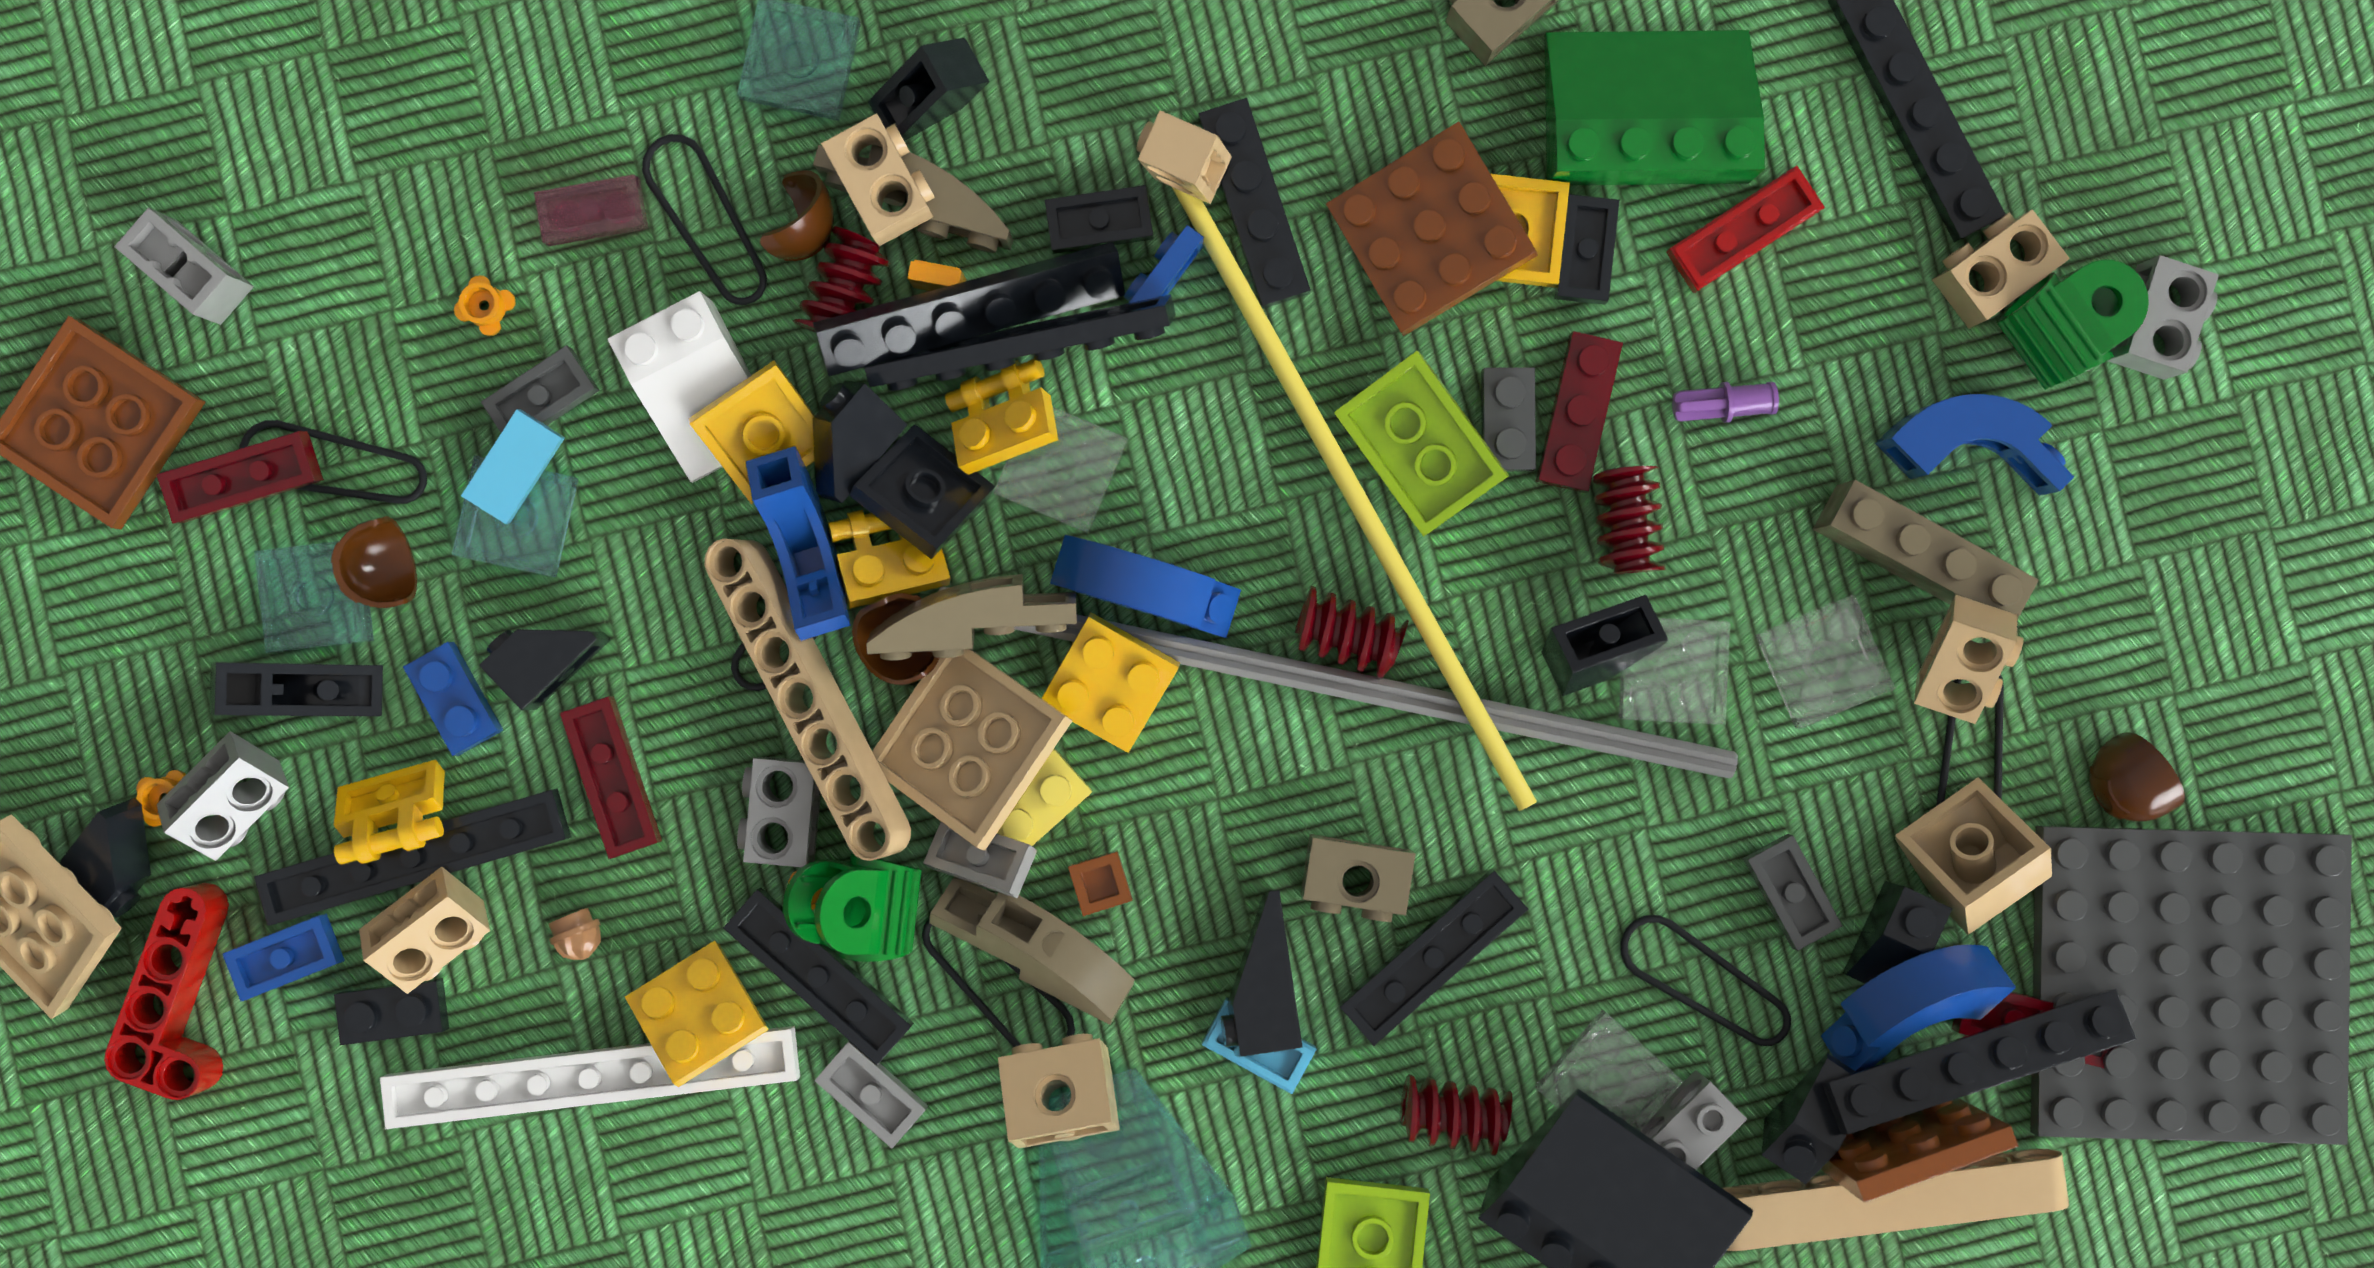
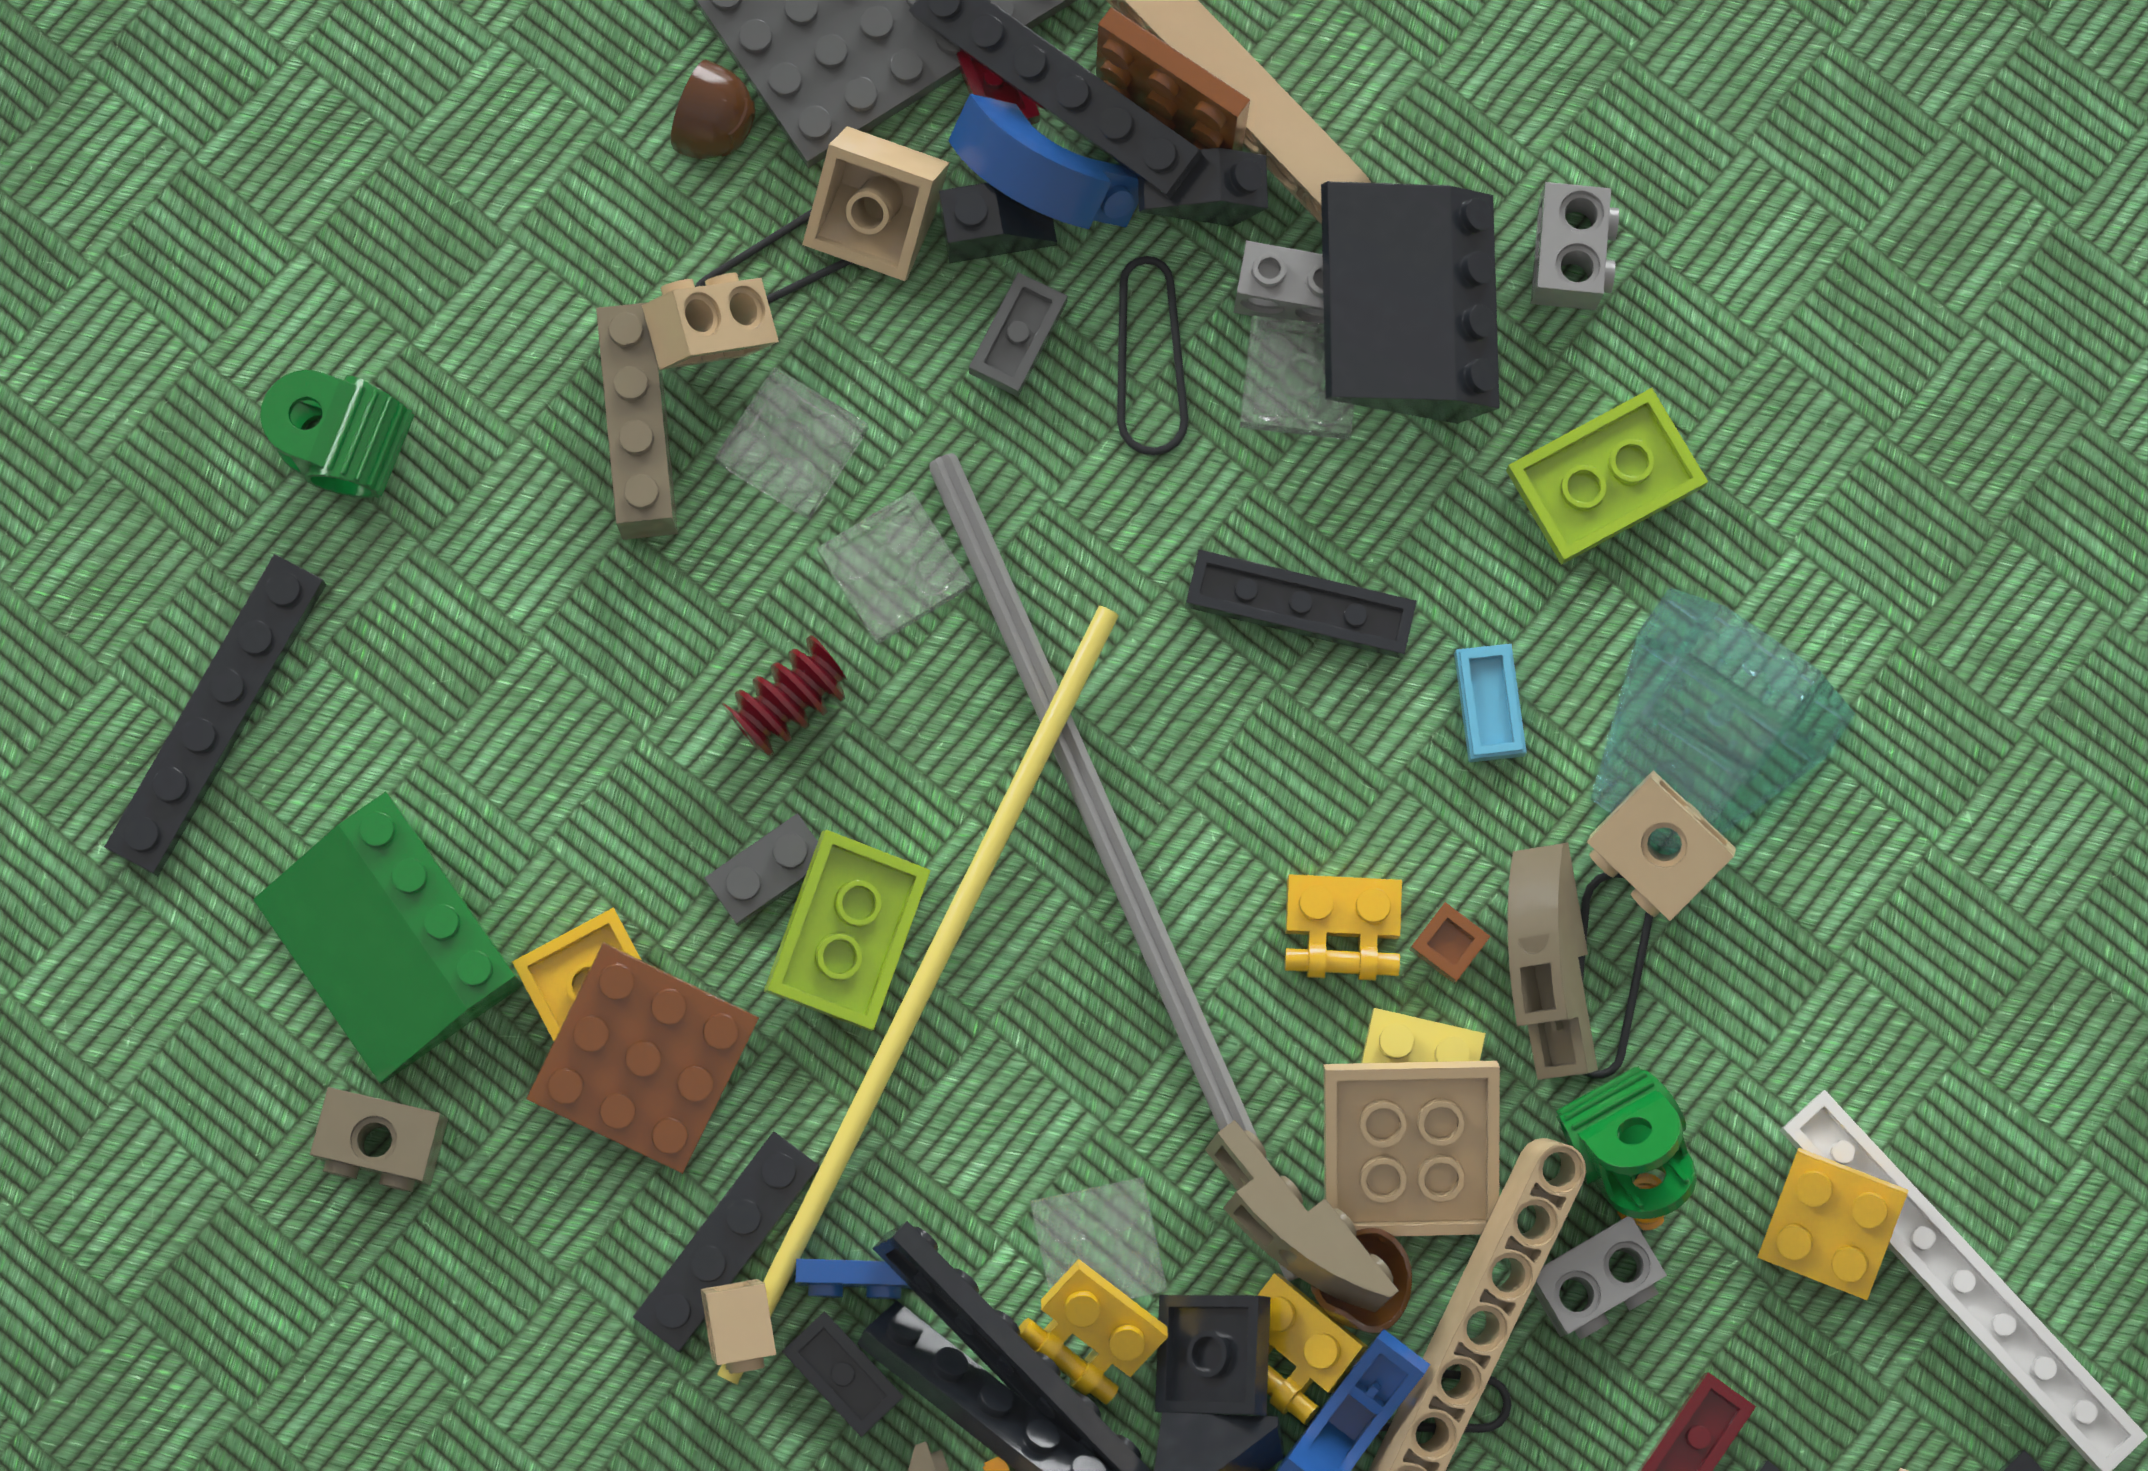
camera: 130 degrees left, 10 degrees down
(576, 935) = (1846, 1389): medium nougat plate -> none
(819, 977) = (1719, 1138): black plate -> none
(871, 1094) = (1786, 1016): light grey plate -> none
(998, 868) = (1503, 1038): light grey plate -> none
(1110, 682) = (1263, 1060): yellow plate -> none
(1145, 585) = (1155, 1090): blue arch -> none
(1180, 825) = (1346, 909): none -> yellow plate
(1263, 994) = (1443, 727): black slope -> none
(1349, 633) = (1063, 876): dark red piece -> none
(1388, 869) = (1277, 751): dark tan brick -> none
(1455, 1114) = (1423, 490): dark red piece -> none
(1579, 412) = (716, 811): dark red plate -> none
(1588, 249) = (561, 903): black plate -> none
(1602, 644) = (917, 644): black slope -> none
(1725, 402) = (617, 686): medium lavender axle -> none
(1745, 229) = (443, 776): red tile -> none
(1983, 420) = (511, 483): blue arch -> none
(2002, 273) = (334, 516): tan brick -> none
(2175, 324) = (274, 339): light grey brick -> none

